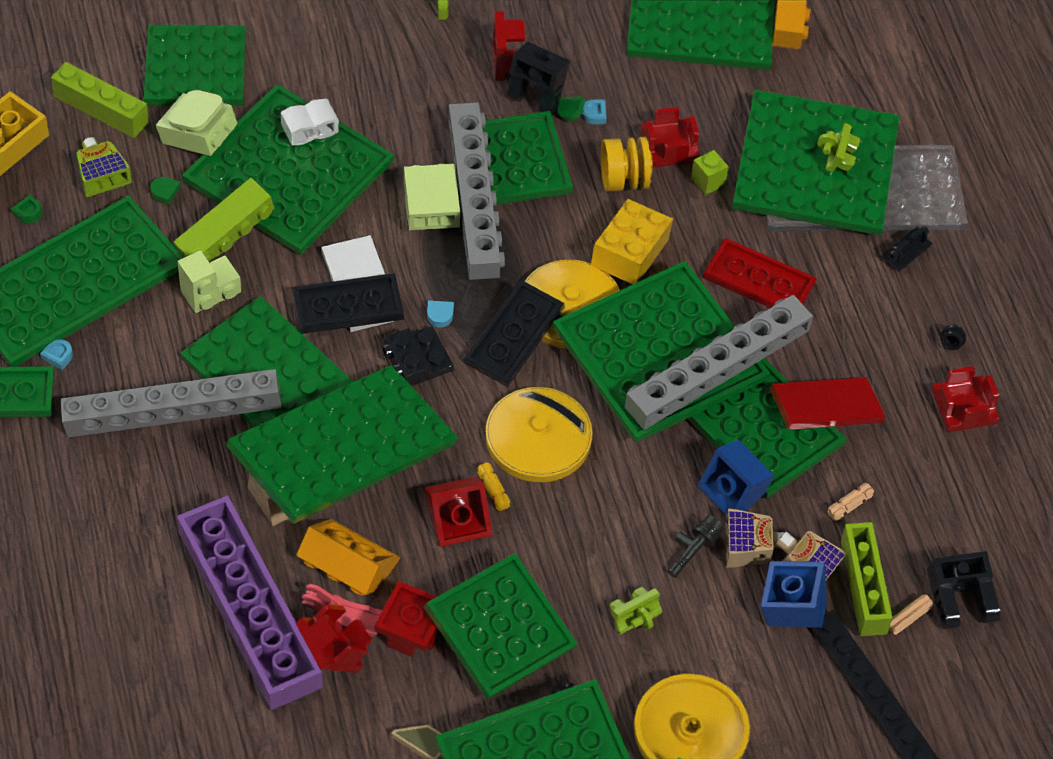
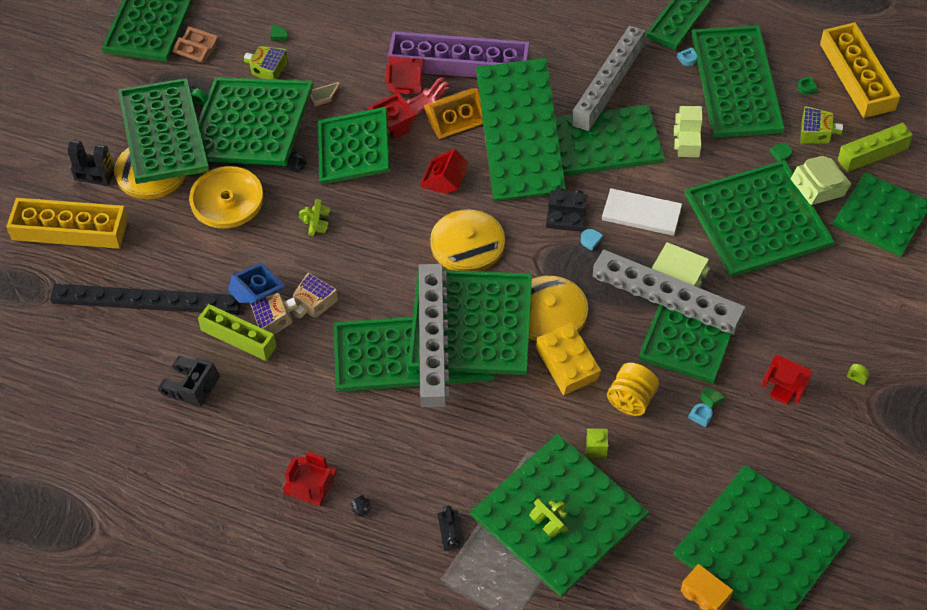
camera: 130 degrees right, 0 degrees up
(227, 222) = (726, 157): lime brick -> none
(309, 121) = (784, 234): white brick -> none
(348, 303) = (626, 192): black tile -> none
(493, 486) = (449, 200): yellow axle -> none
(514, 333) = (545, 262): black tile -> none
(541, 68) = (741, 373): black brick -> none
(670, 138) = (644, 441): red panel -> none
(706, 534) = (334, 274): pearl dark grey piece -> none
(735, 478) = (352, 306): blue slope -> none
(757, 275) = (493, 426): red tile -> none
(827, 403) = (366, 392): red tile -> none
(850, 501) = (296, 368): light nougat axle -> none
(910, 614) = (202, 345): light nougat axle -> none

